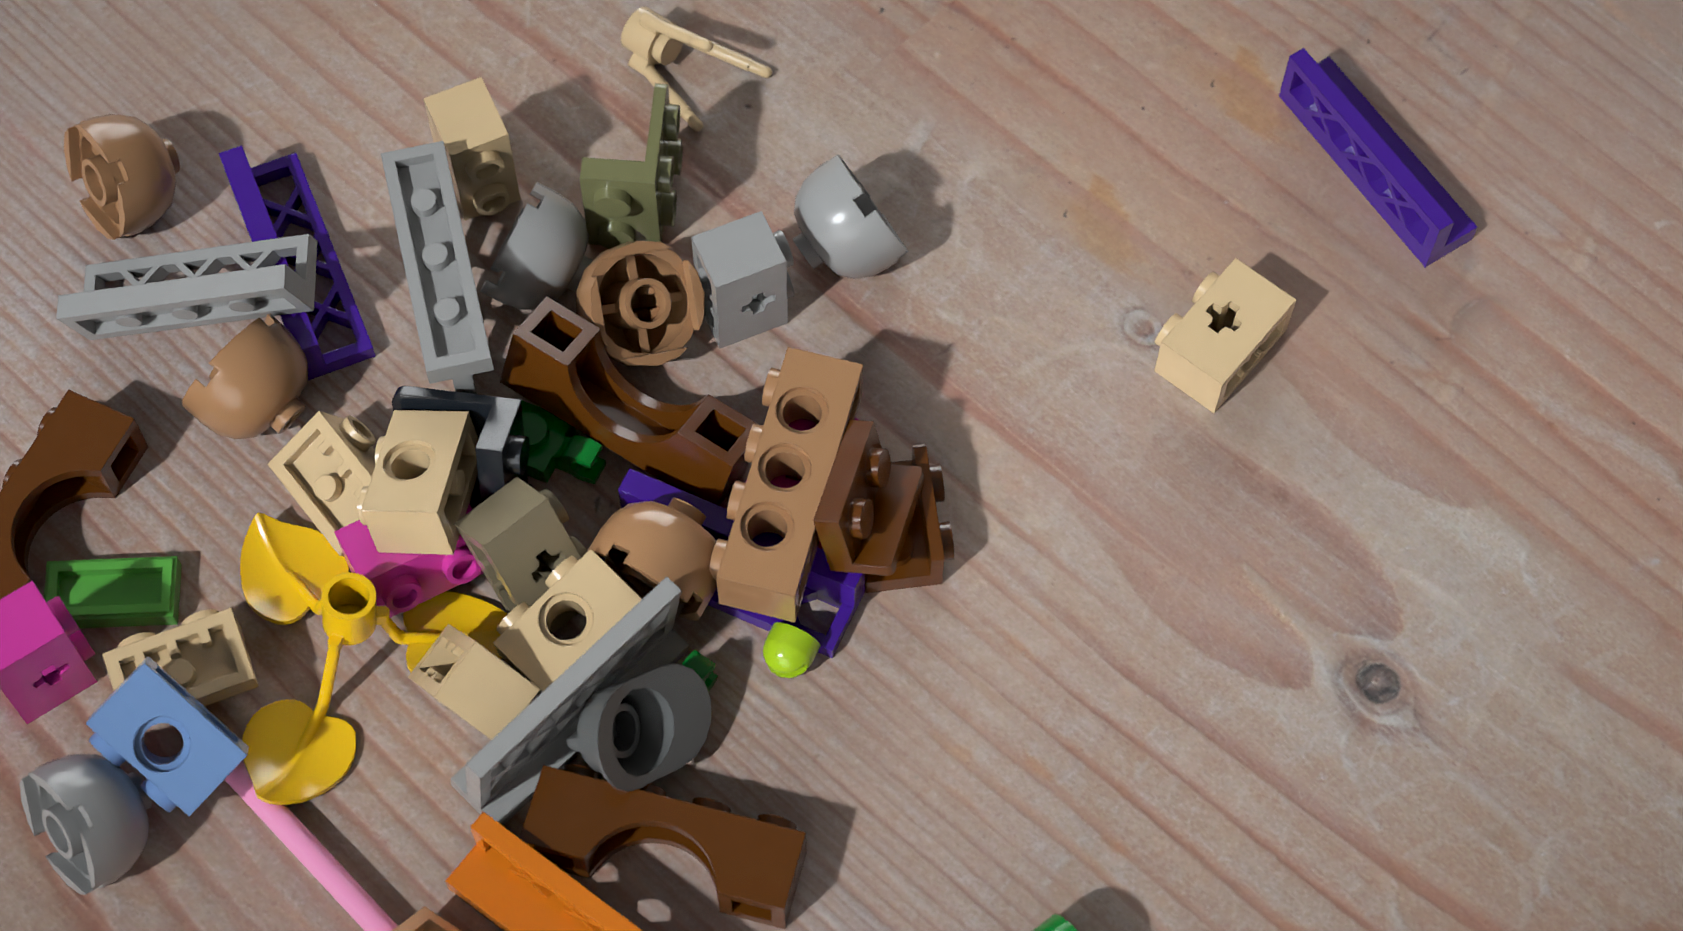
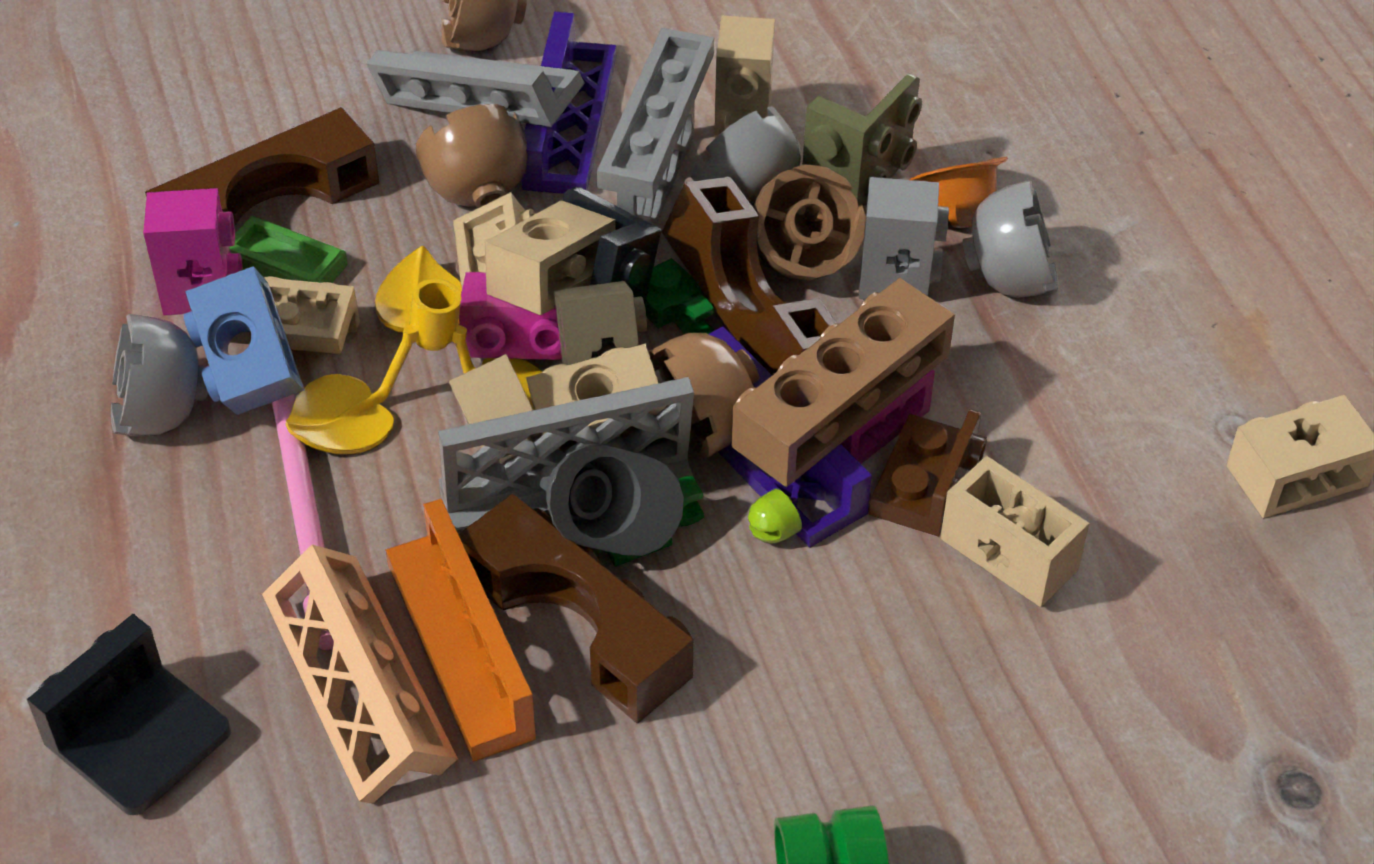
camera: 30 degrees right, 15 degrees down
(659, 40) = (943, 78): tan plant -> none
(754, 172) = (964, 188): none -> orange piece
(866, 504) = (894, 417): reddish brown bracket -> none
(1020, 557) = (1014, 530): none -> tan brick

